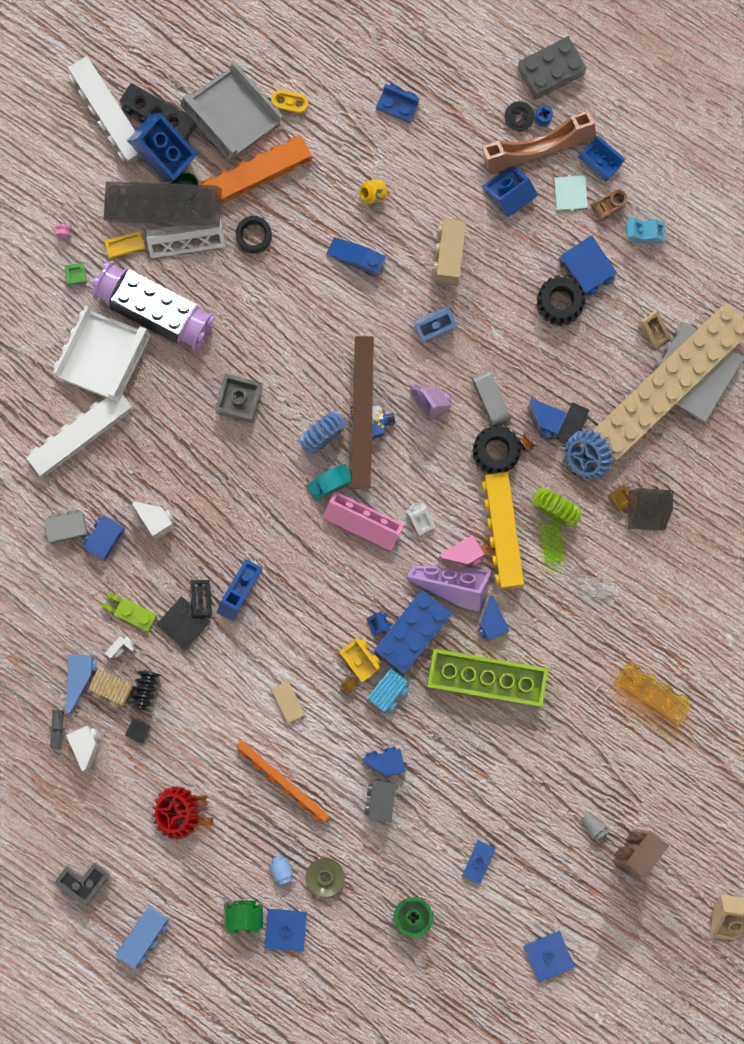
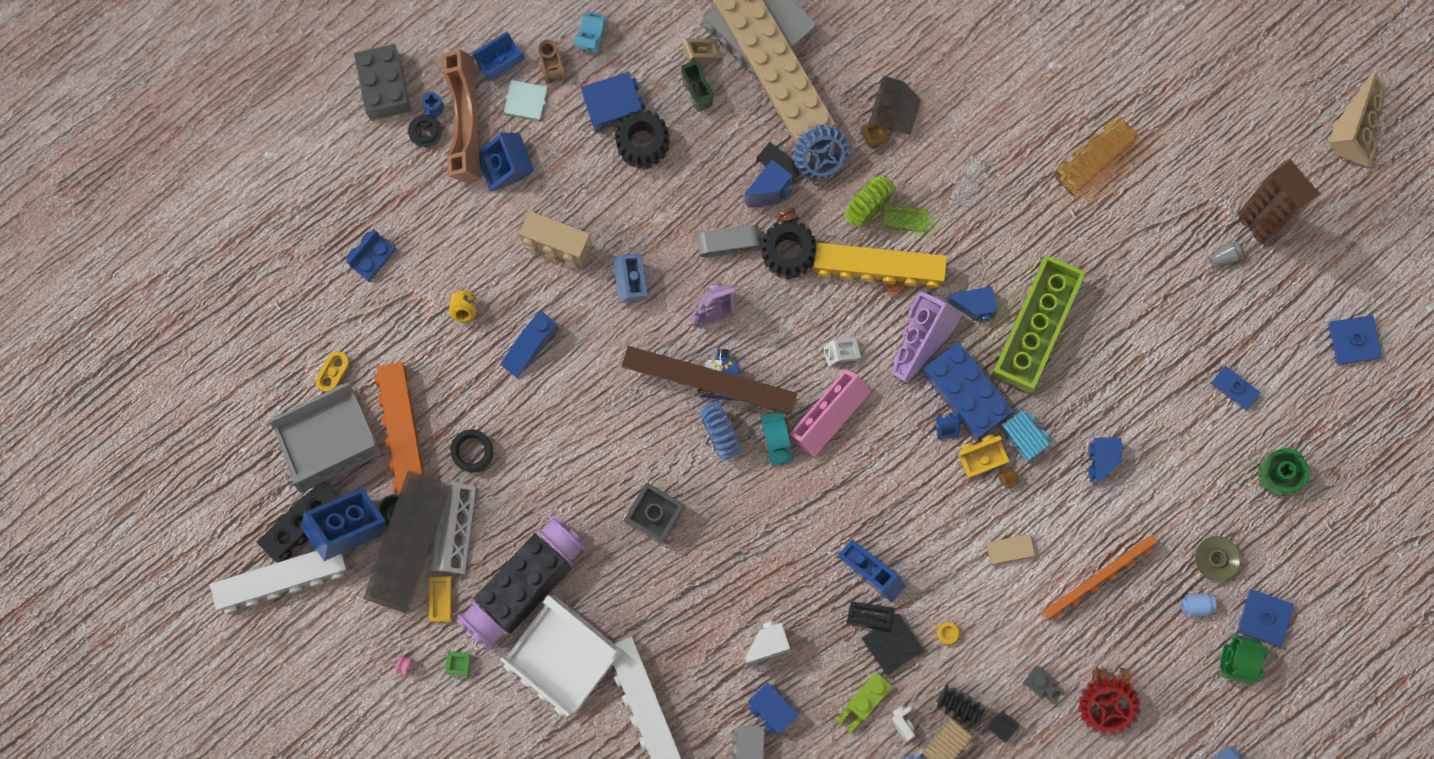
camera: 70 degrees left, 5 degrees down
(183, 753) = (1040, 683): none -> dark grey plate
(204, 667) = (948, 633): none -> yellow tile
(381, 801) = (1148, 473): dark grey brick -> none
(464, 553) = (892, 313): bright pink slope -> none
(625, 331) = (699, 88): none -> dark green brick

